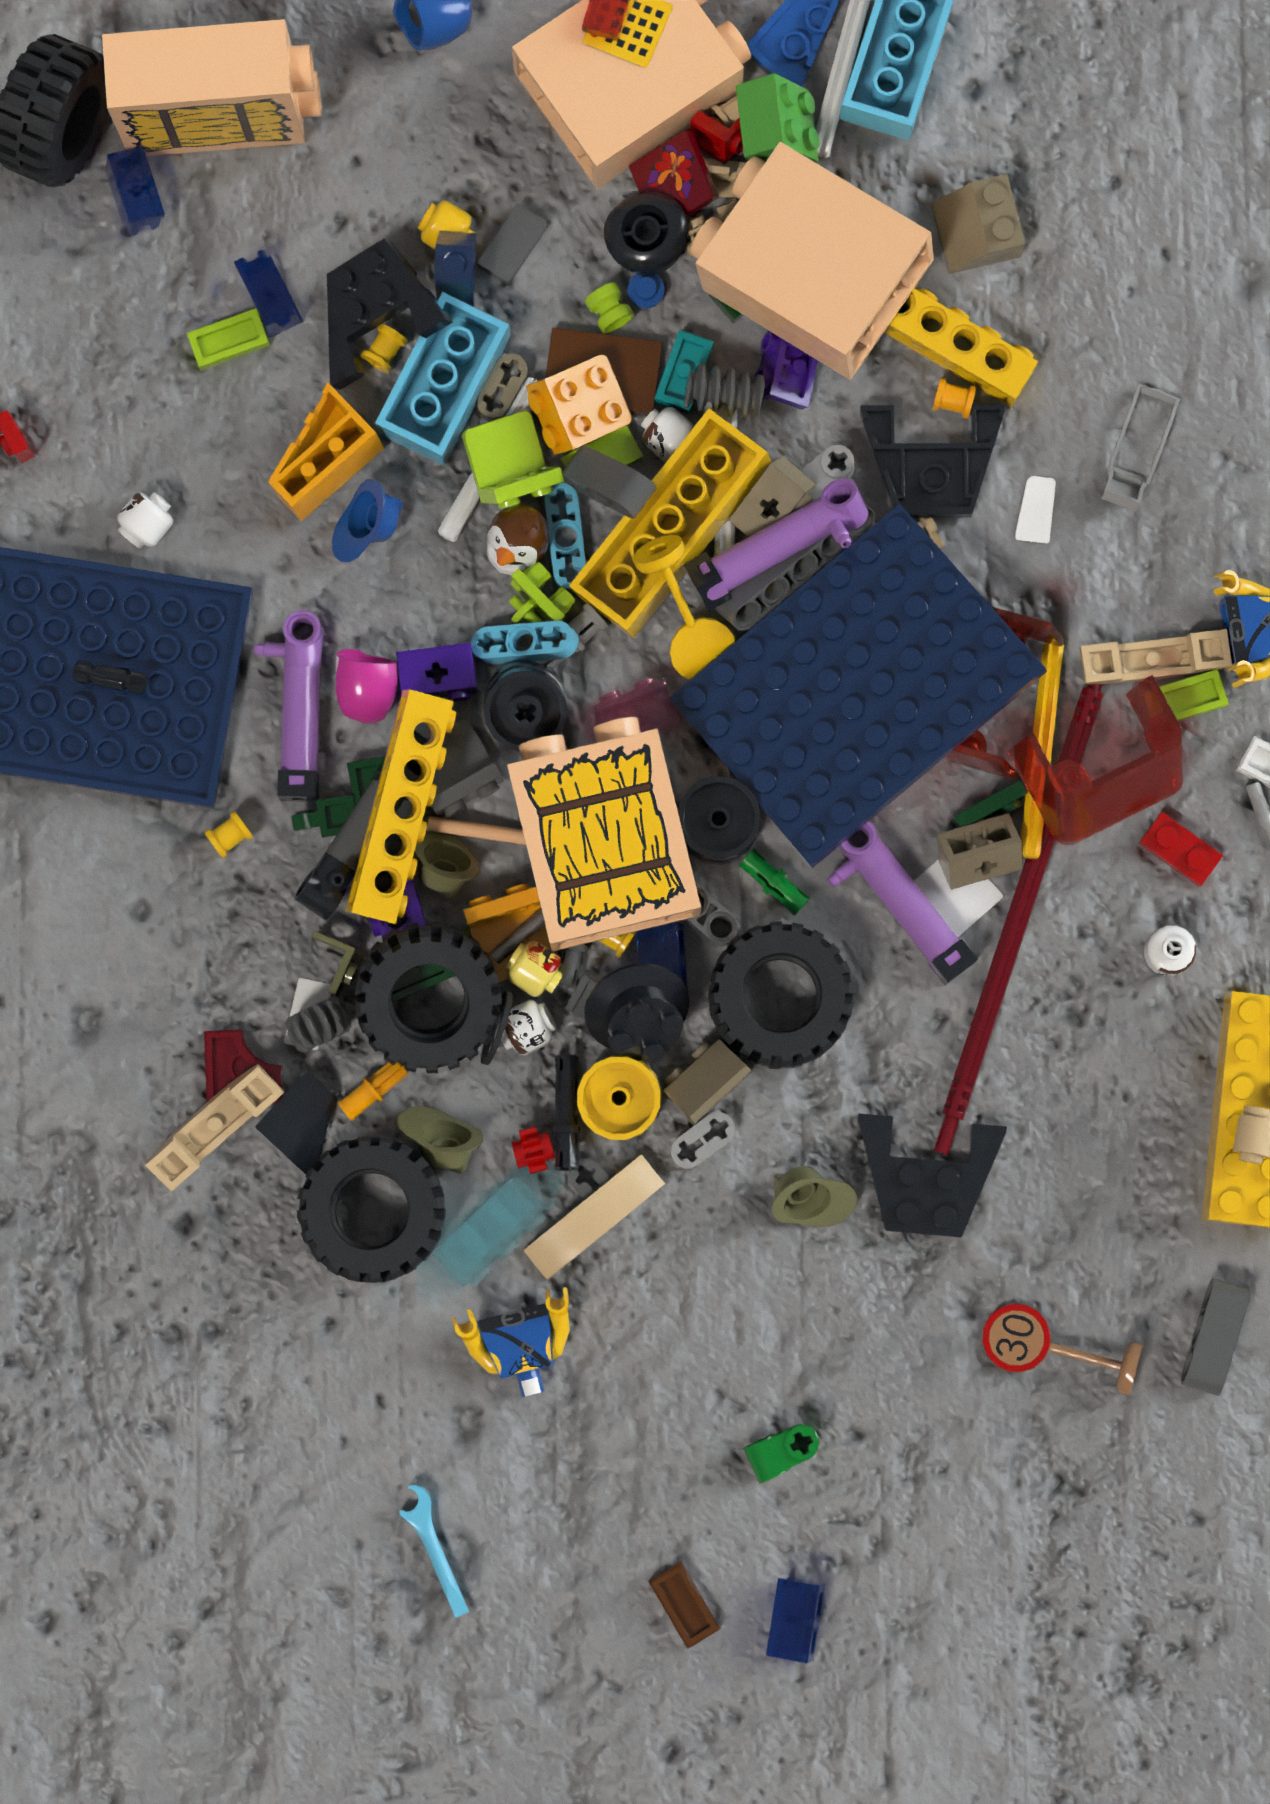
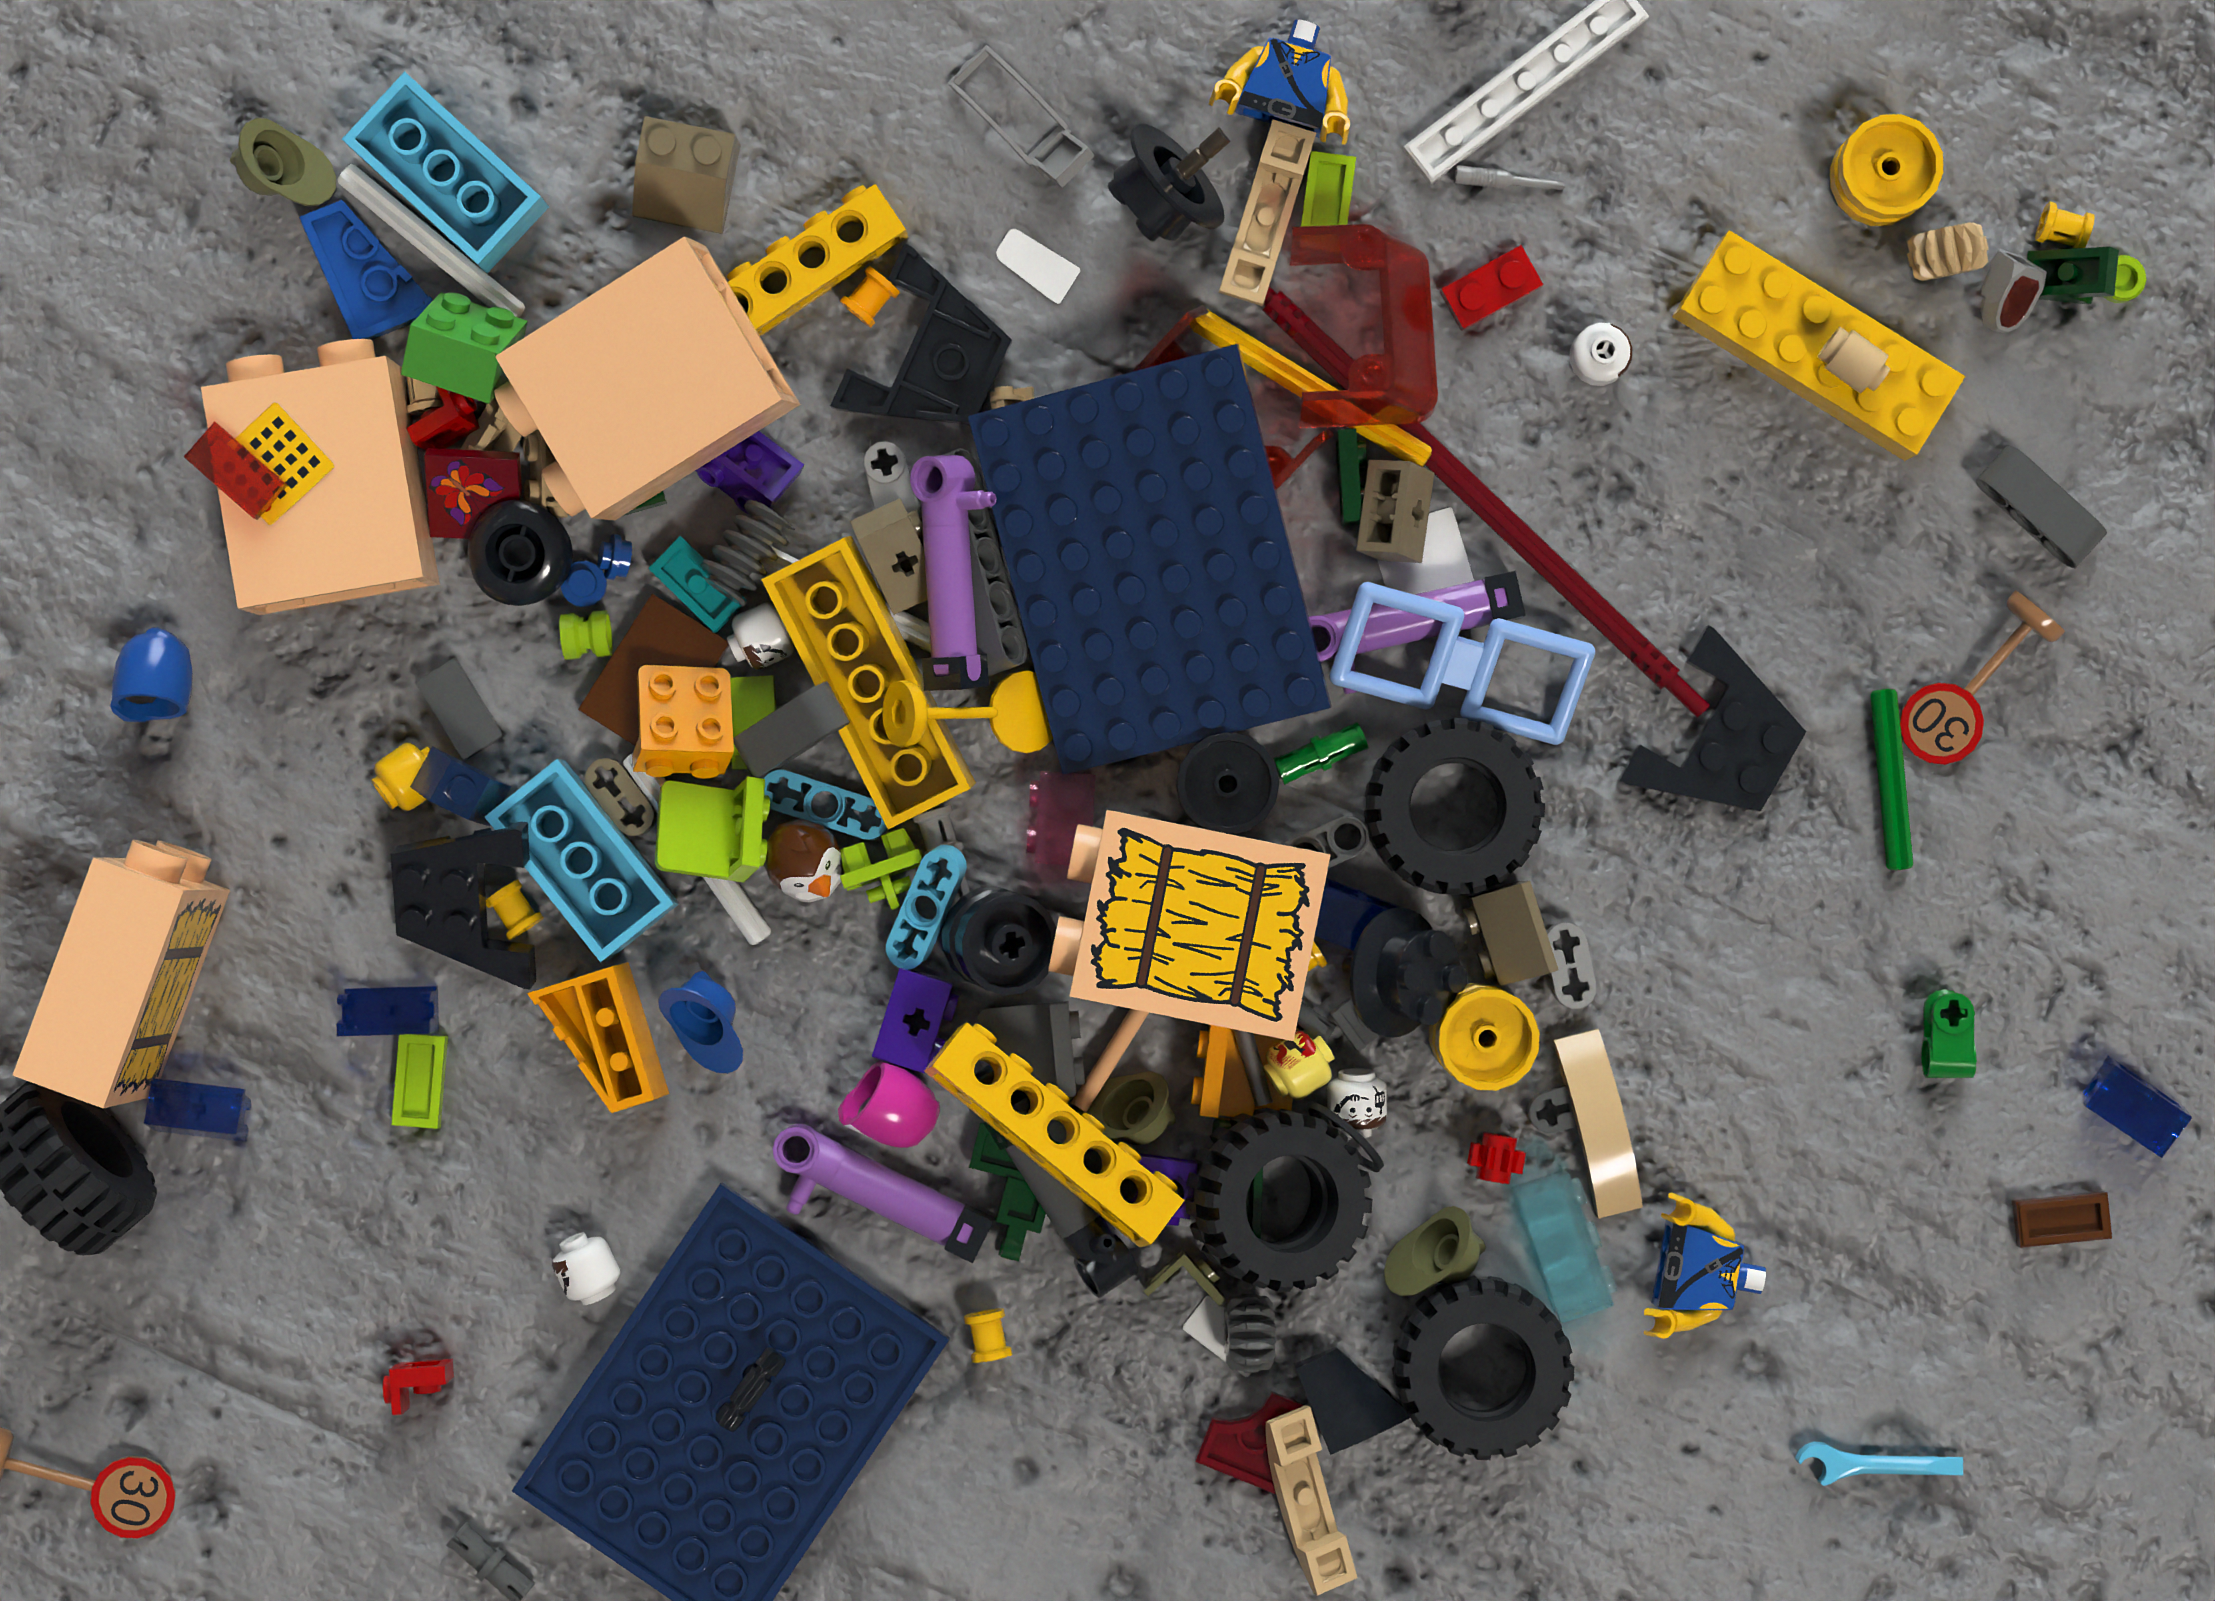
camera: 70 degrees left, 5 degrees up
(372, 1089) = (1347, 1308): light orange axle -> none
(566, 1113) = (1472, 1102): black pin -> none
(676, 302) = (615, 557): none -> blue plate
(810, 1199) = (1688, 879): olive piece -> none
(890, 952) = (1461, 663): none -> light blue bar
(956, 1319) = (1891, 779): none -> green axle
(1141, 572) = (1167, 184): none -> black piece

